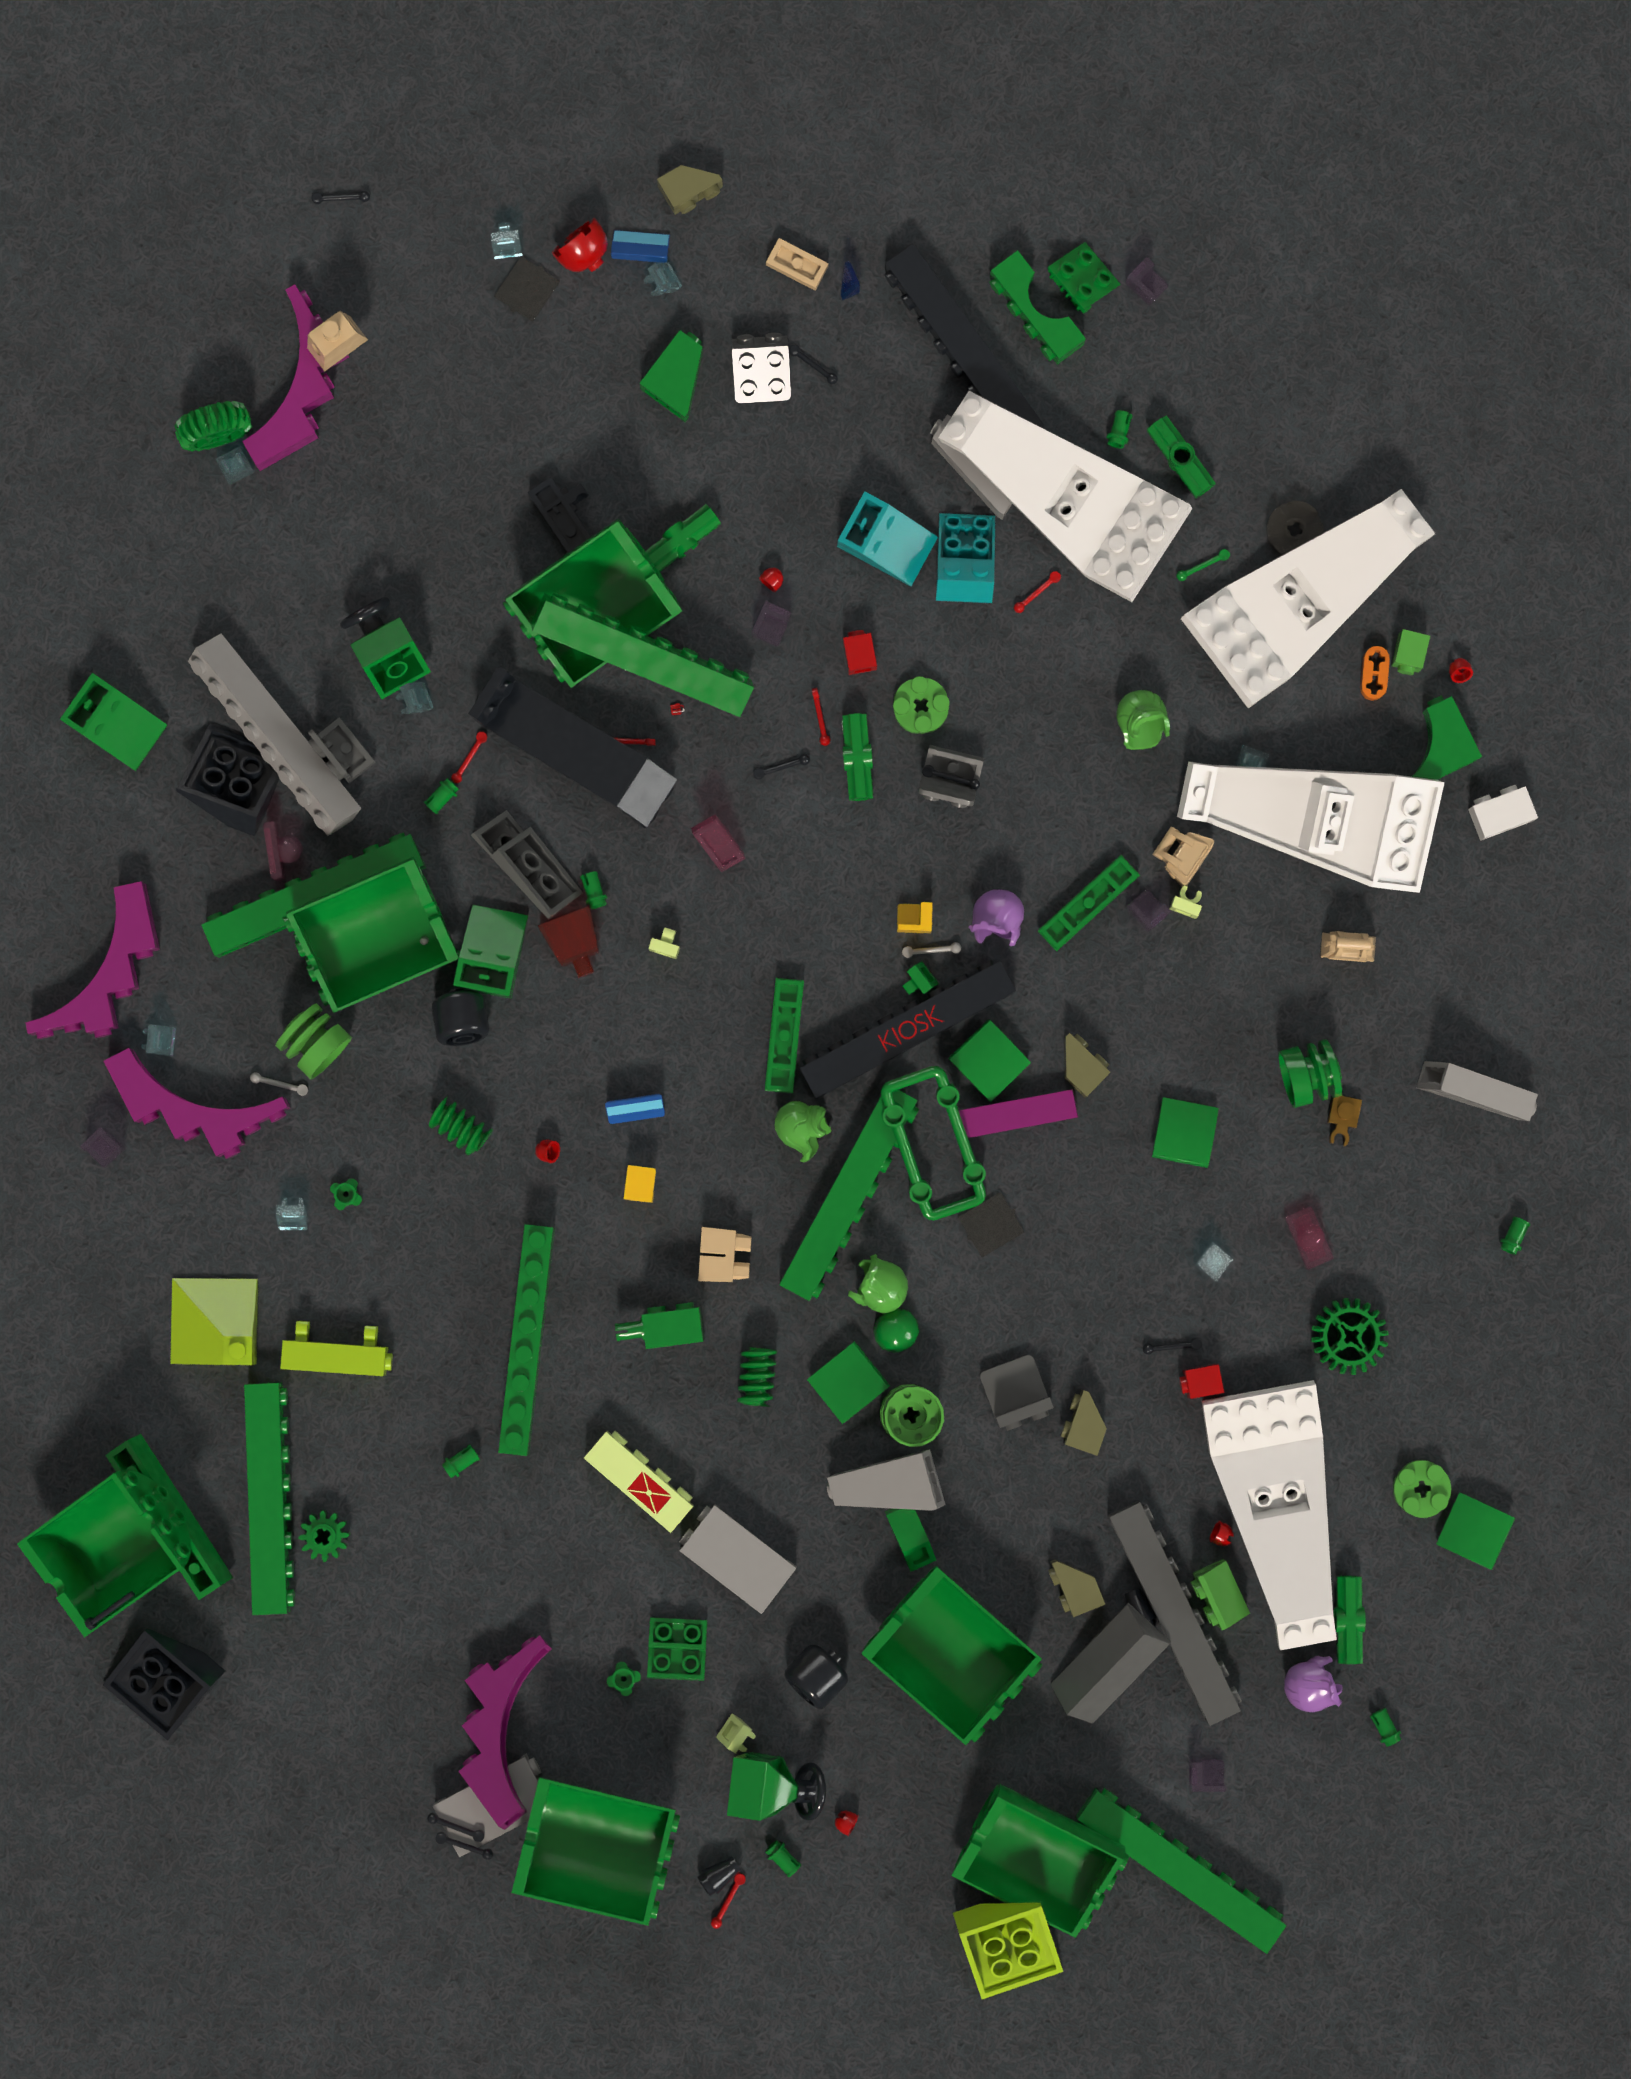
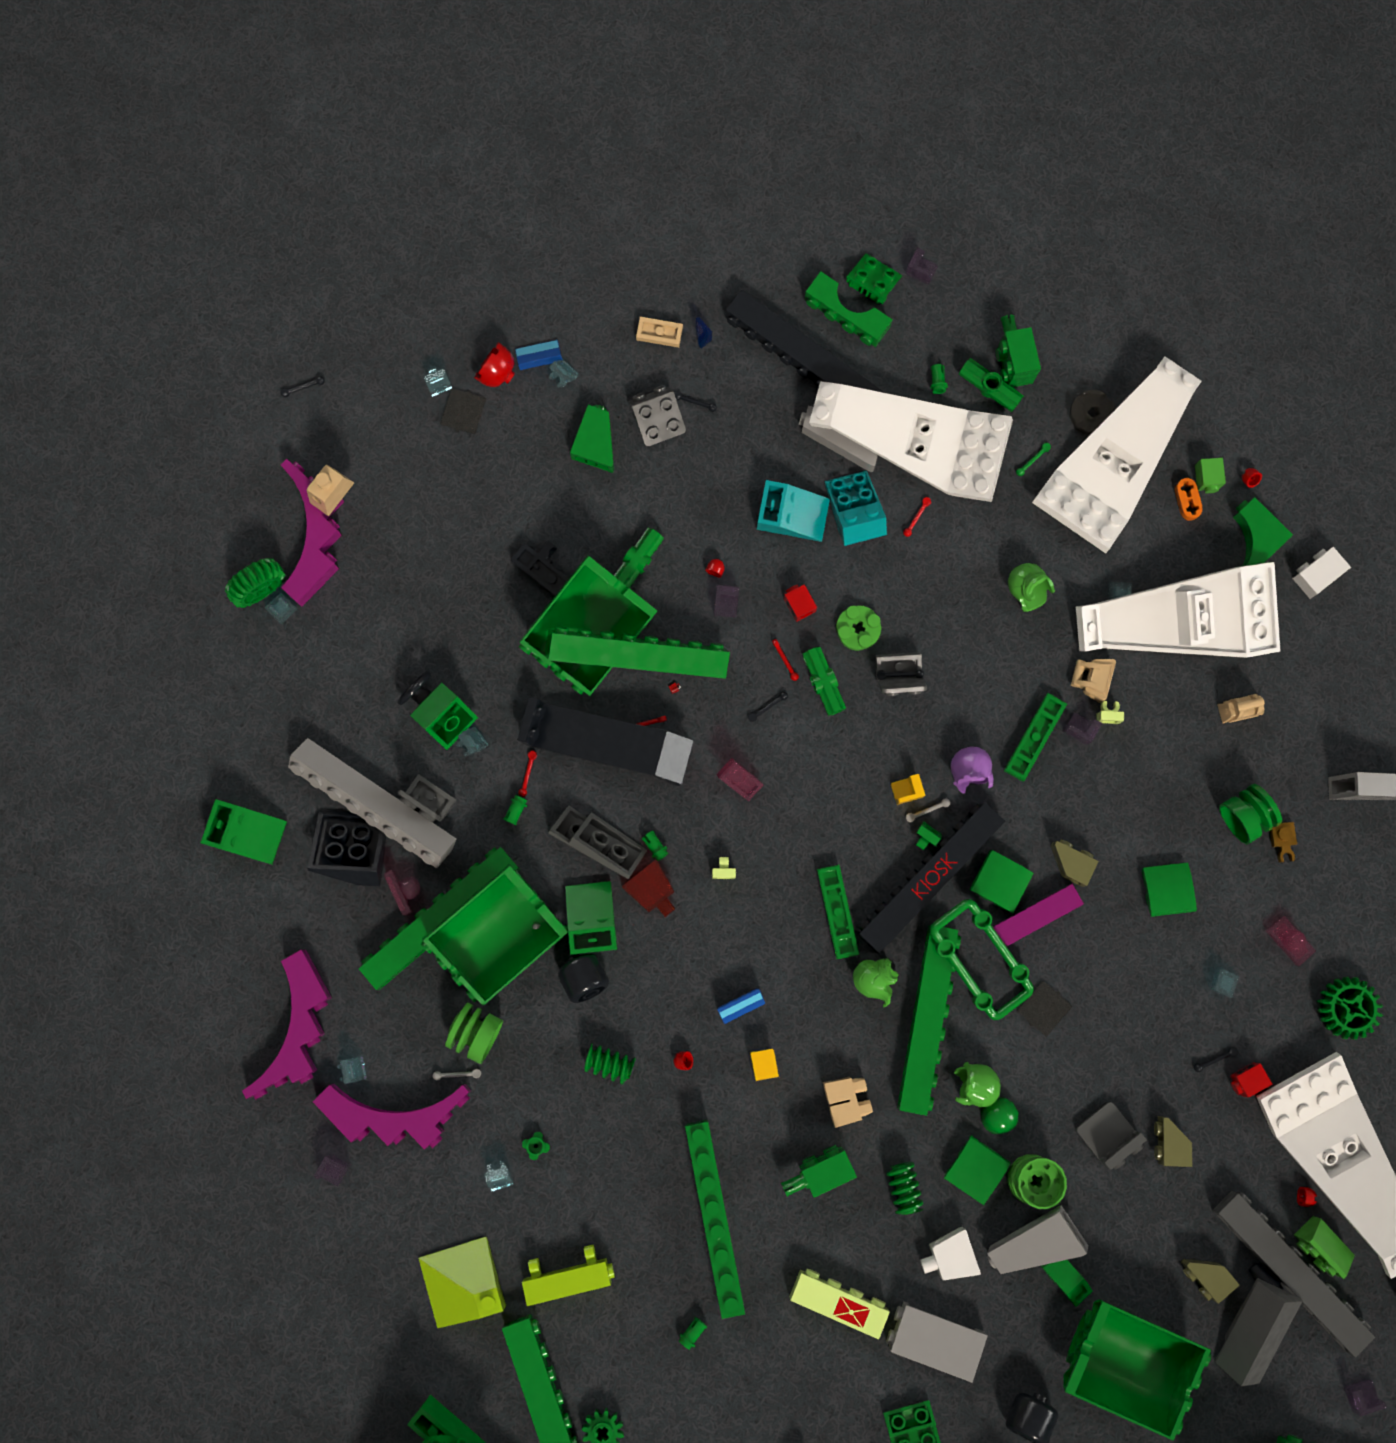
camera: 15 degrees left, 5 degrees down
(688, 185) = (560, 299): olive slope -> none
(786, 1470) = (952, 1256): none -> white torso
(1224, 429) = (1017, 354): none -> green brick

